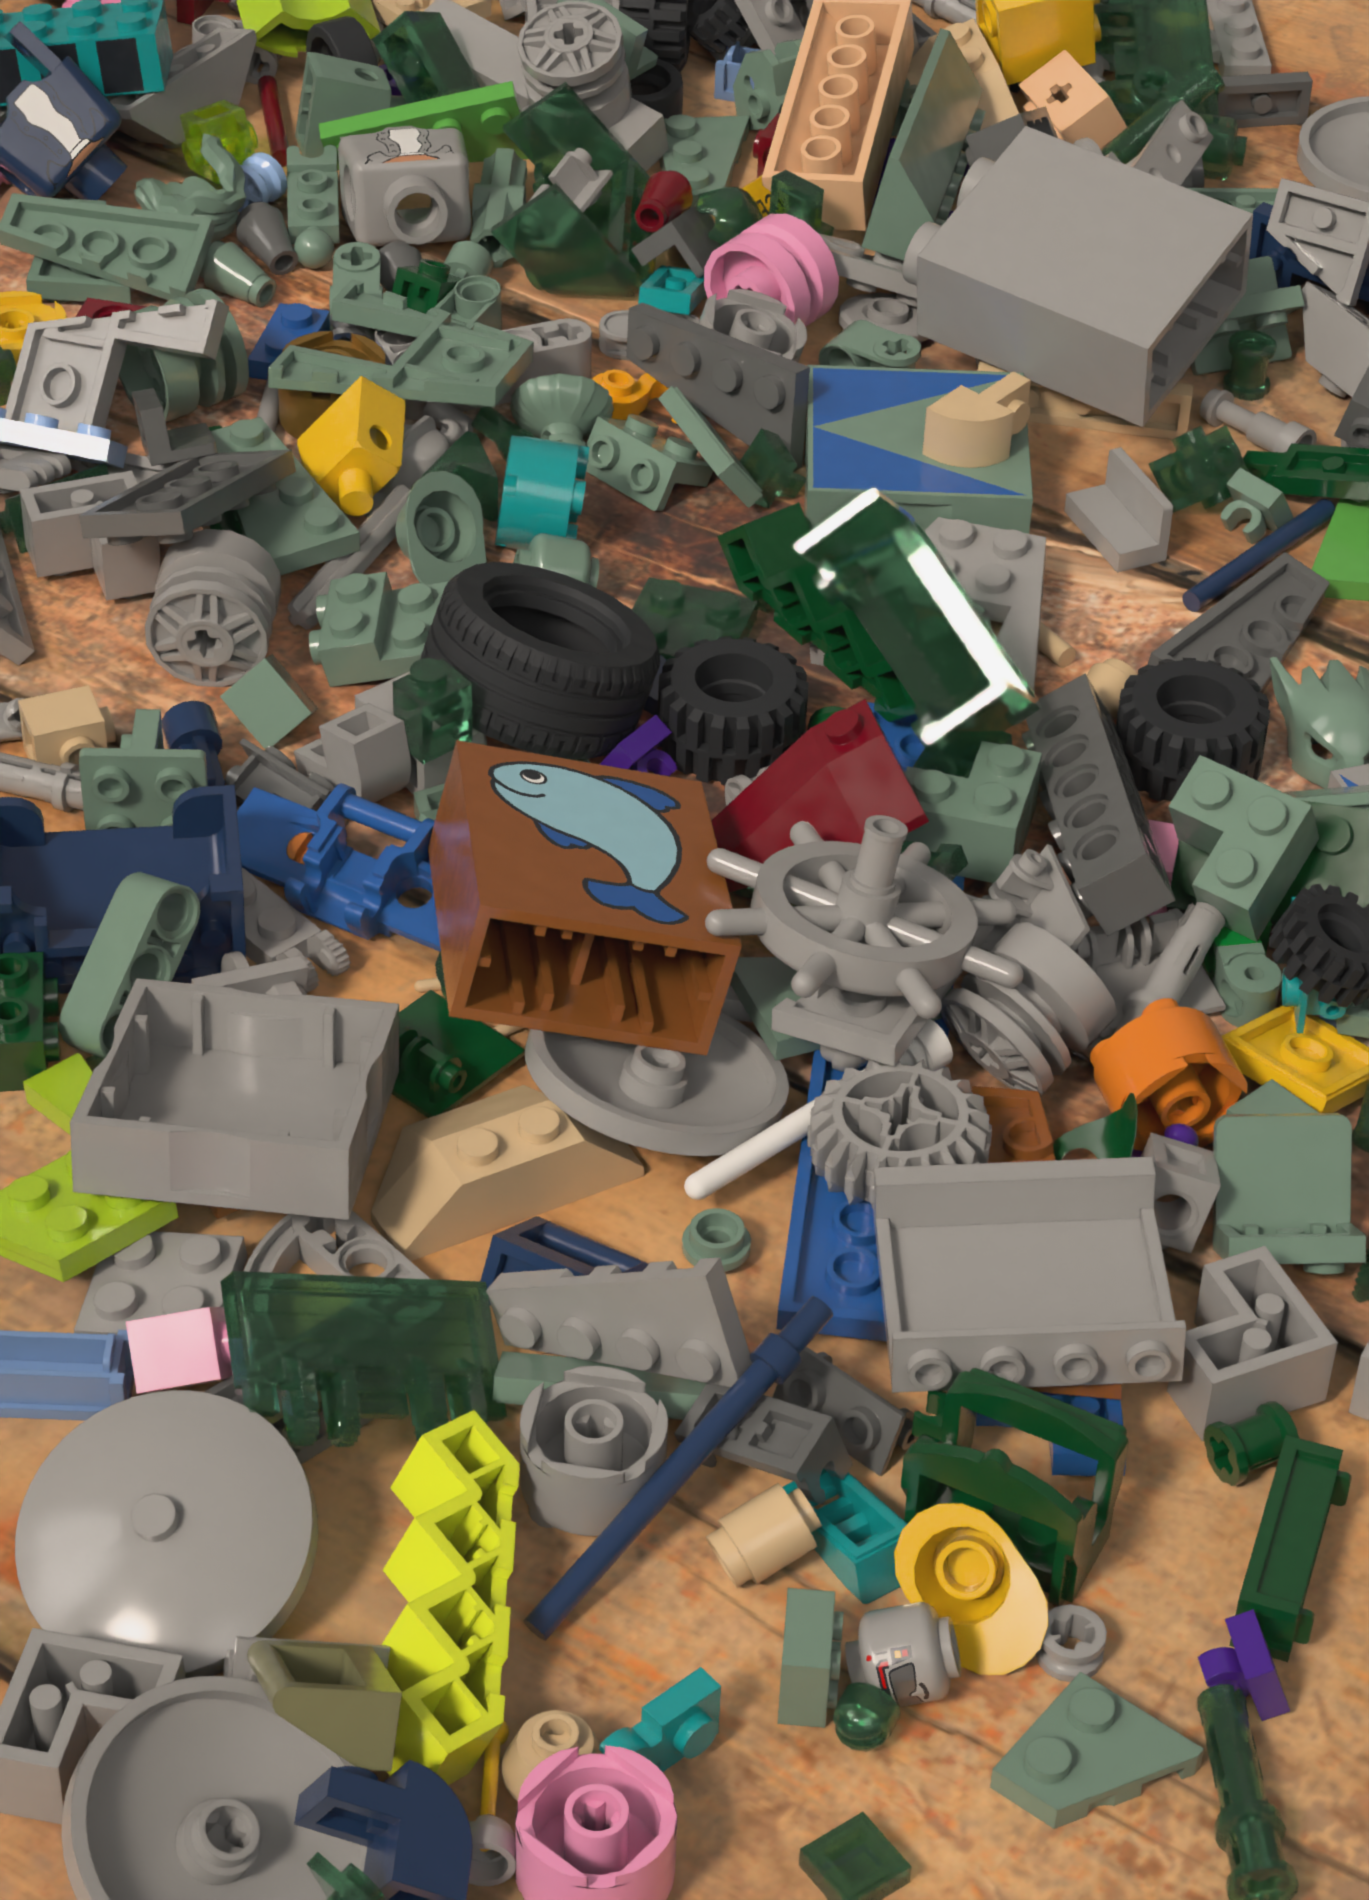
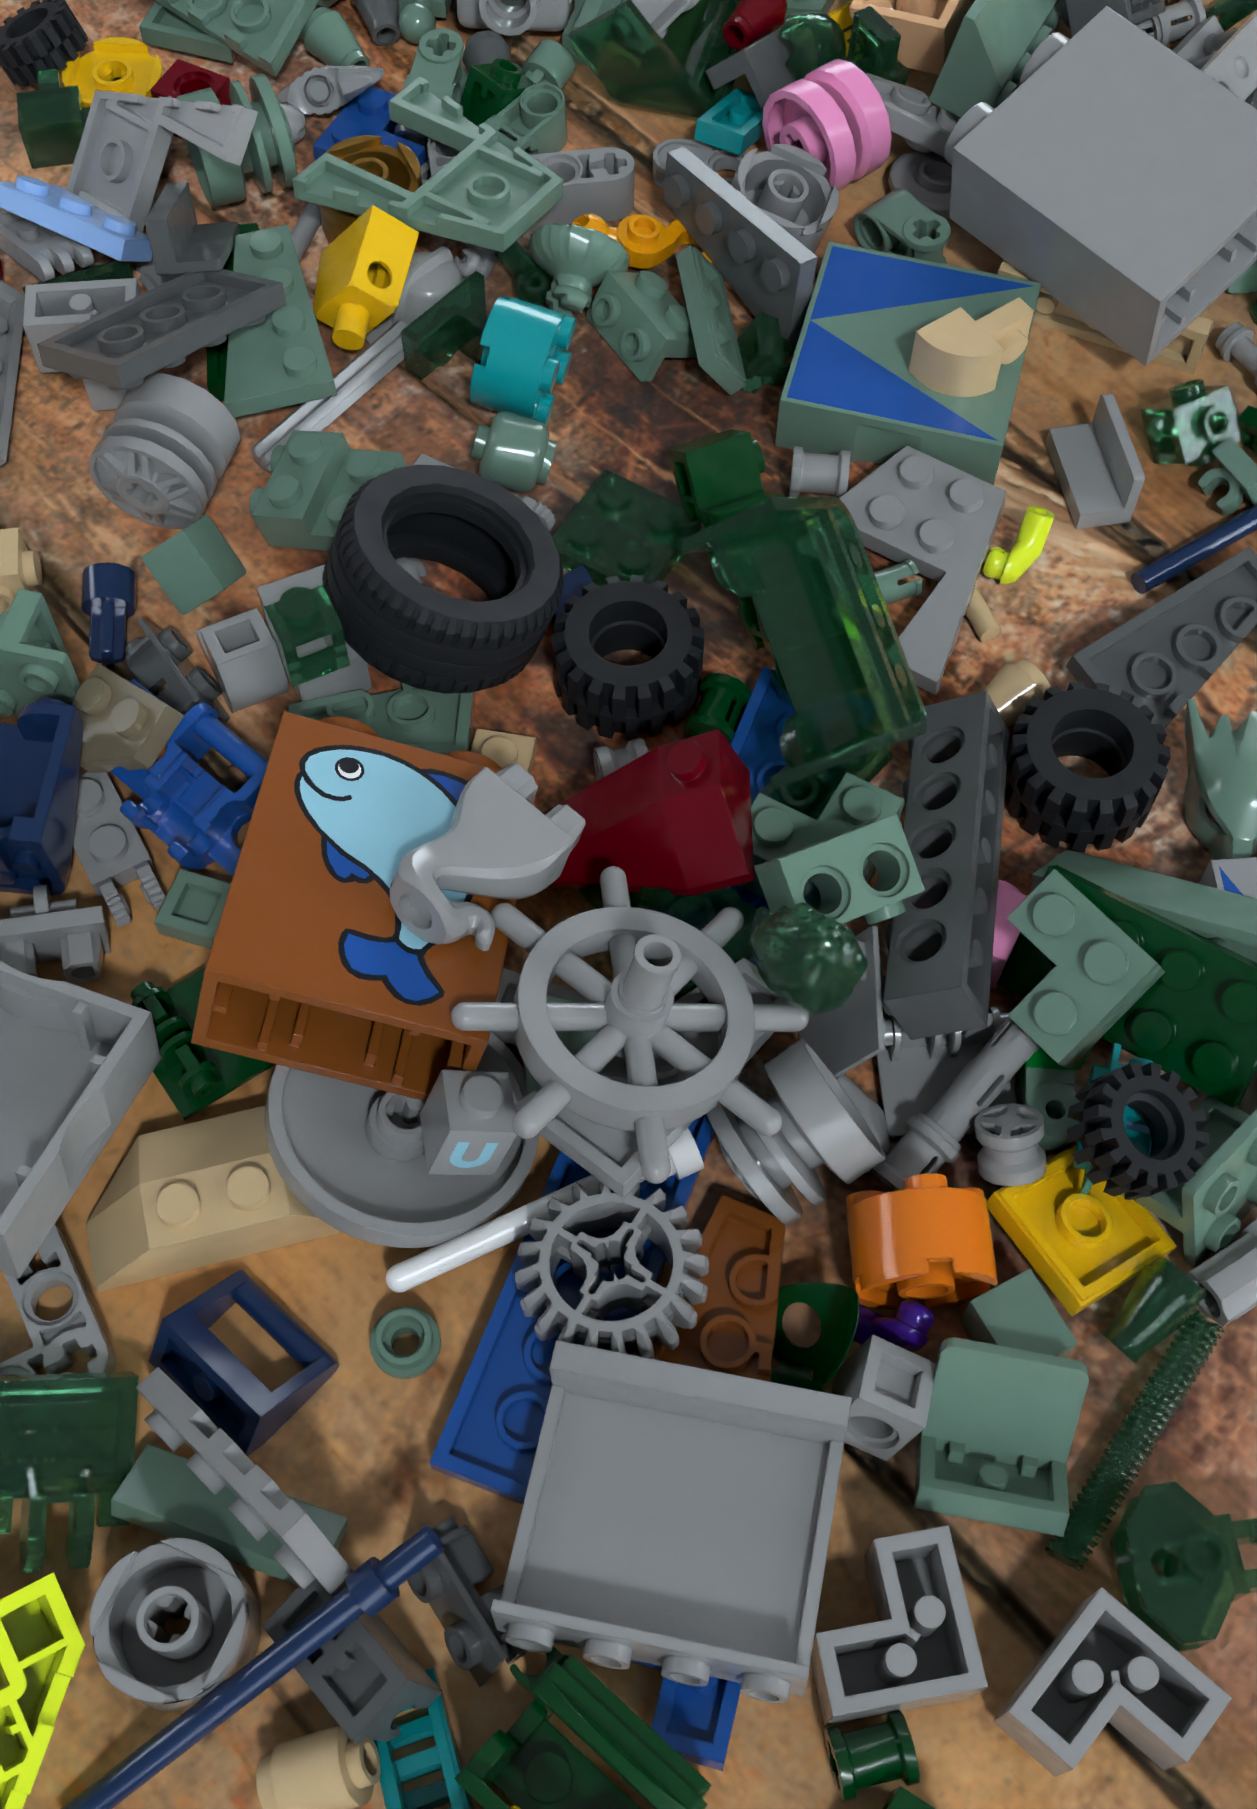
camera: 15 degrees right, 20 degrees up
(260, 303) = (328, 87): none -> light grey hair
(275, 811) = (121, 723): none -> dark tan wing
(386, 961) = (192, 908): none -> sand green plate
(441, 527) = (417, 394): sand green piece -> none
(640, 750) = (519, 693): dark purple tile -> none
(686, 816) = (492, 850): none -> light grey hips
(728, 1042) = (468, 1122): none -> light grey brick
(1004, 850) = (807, 958): none -> clear green hair
(1009, 801) = (837, 872): none -> sand green brick
(1077, 588) = (1026, 549): none -> neon yellow arm
(1225, 998) = (1010, 1144): none -> light grey wheel

